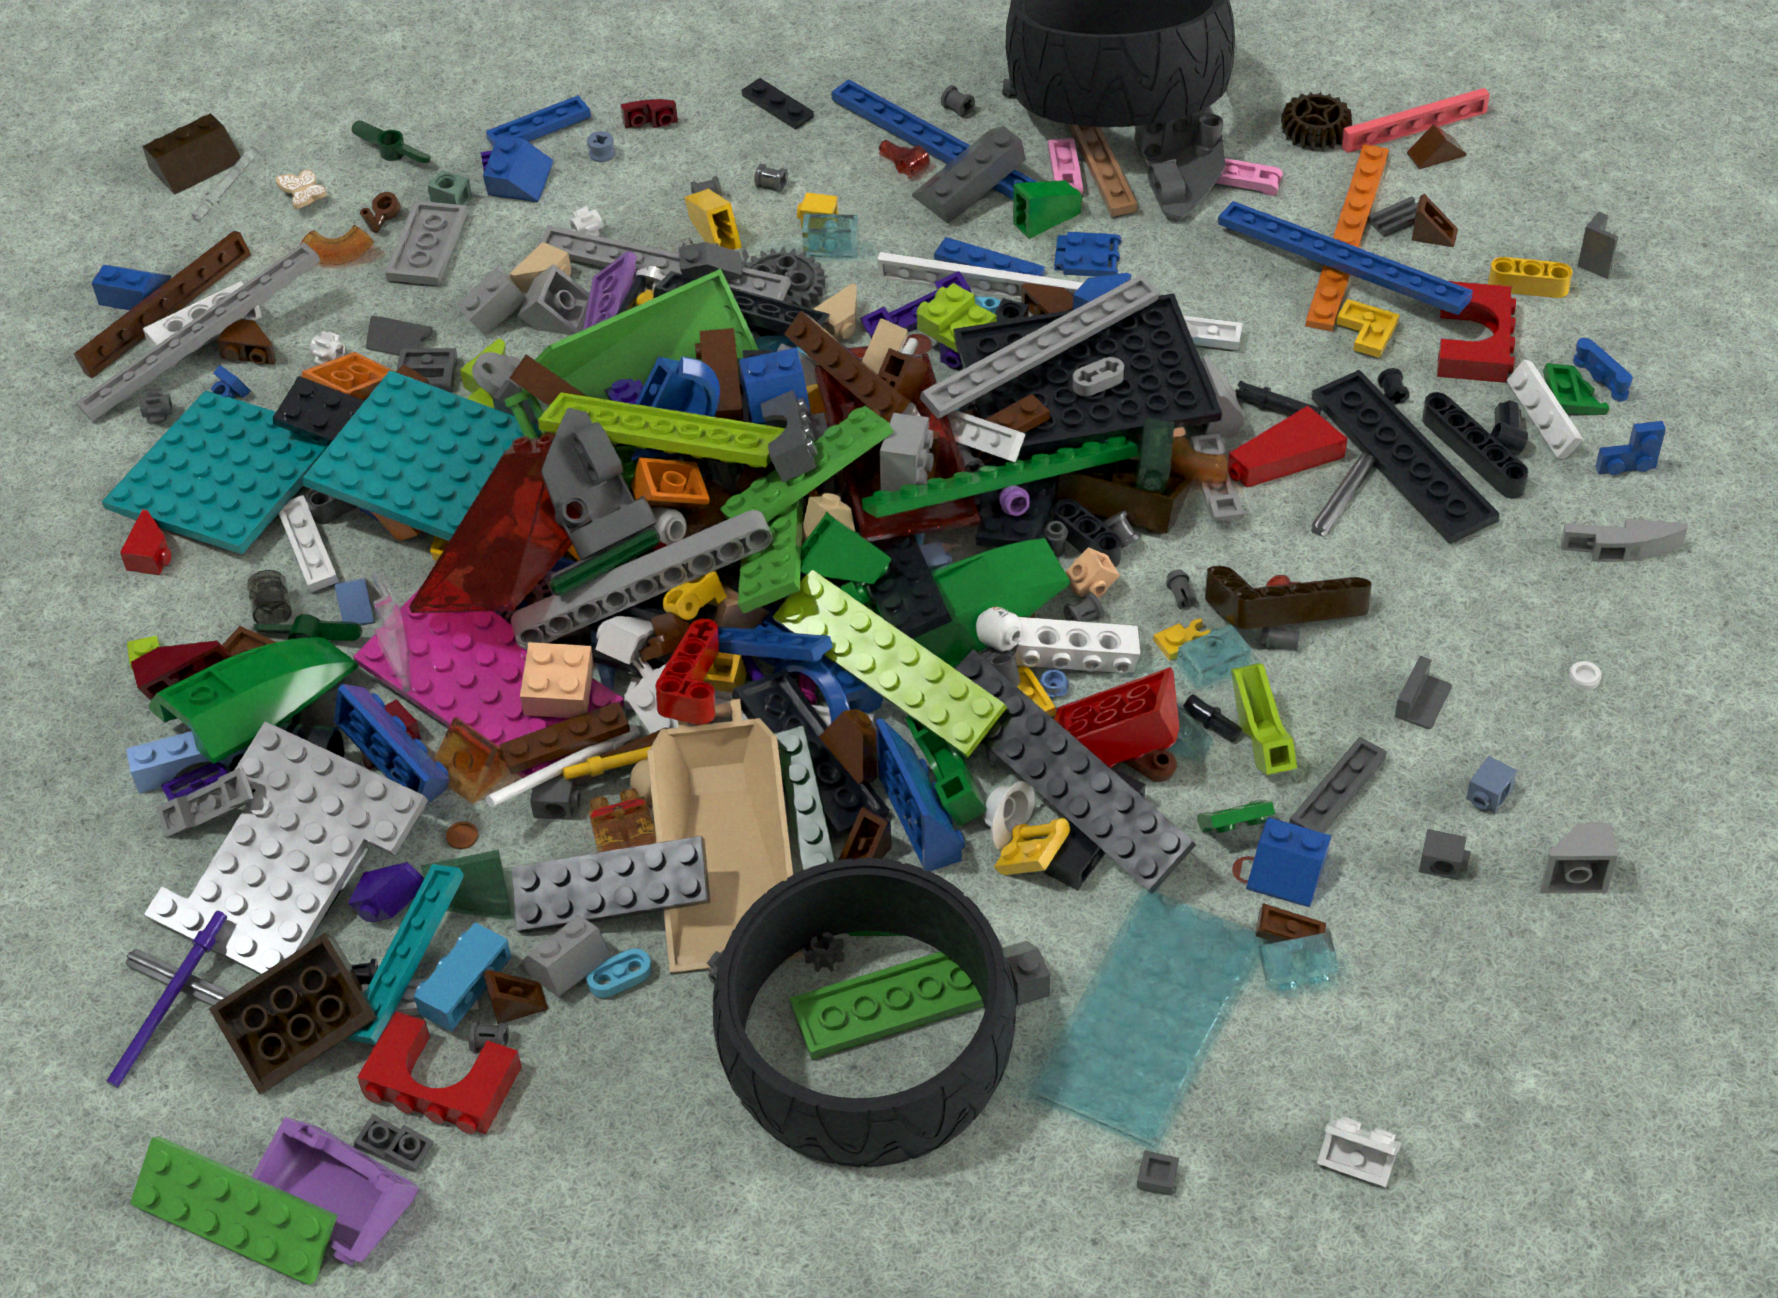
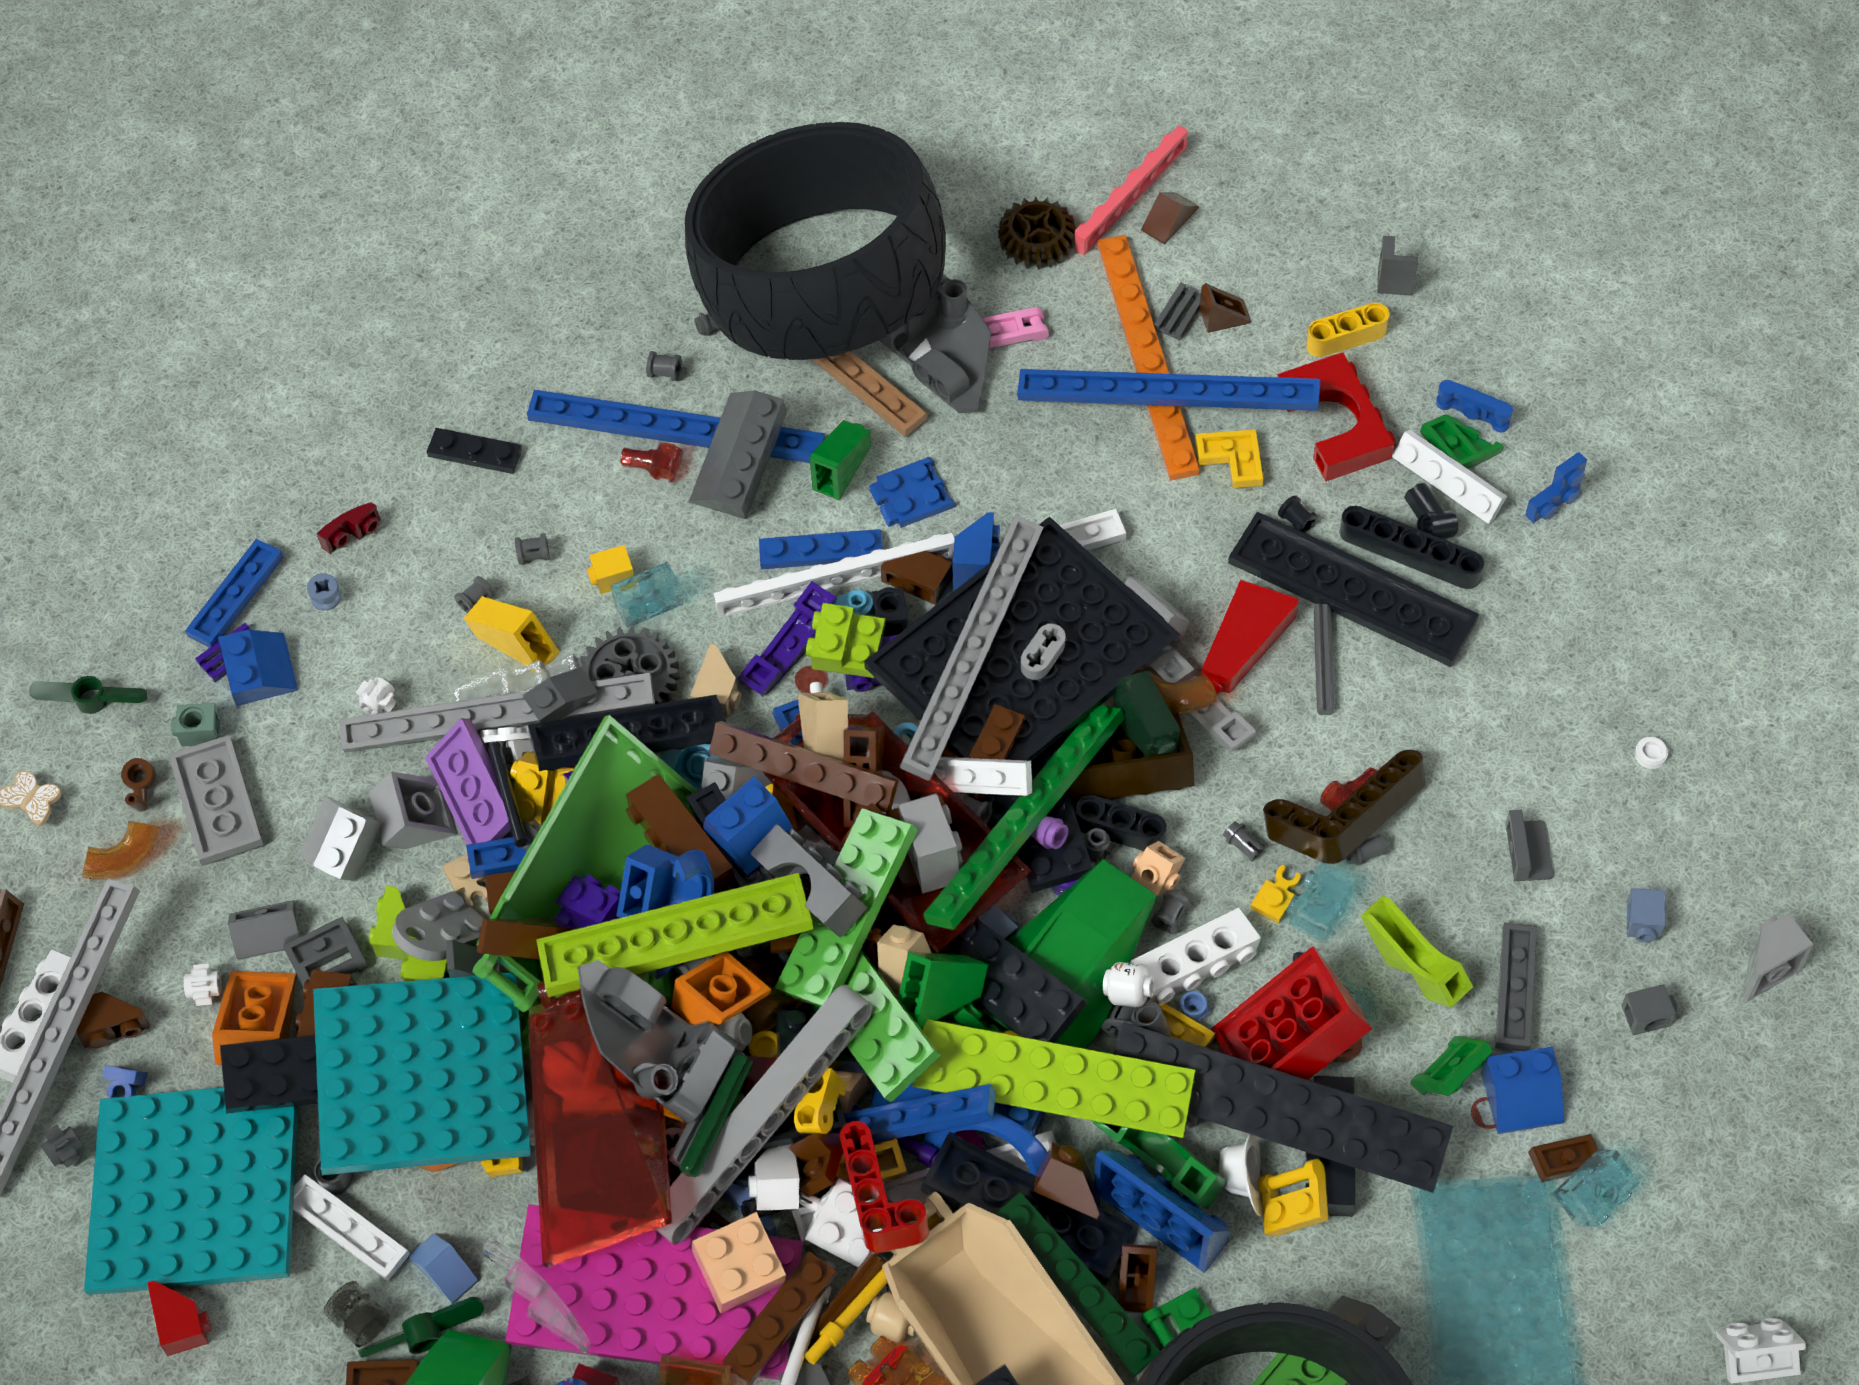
camera: 30 degrees left, 10 degrees up
(537, 262) = (366, 769): tan slope -> none
(1065, 162) = (822, 396): bright pink plate -> none
(1121, 526) = (1147, 800): dark grey bush -> none
(1211, 717) = (1359, 968): black axle -> none
(1266, 398) = (1199, 584): black pin -> none
(1632, 542) = (1610, 587): light grey slope -> none

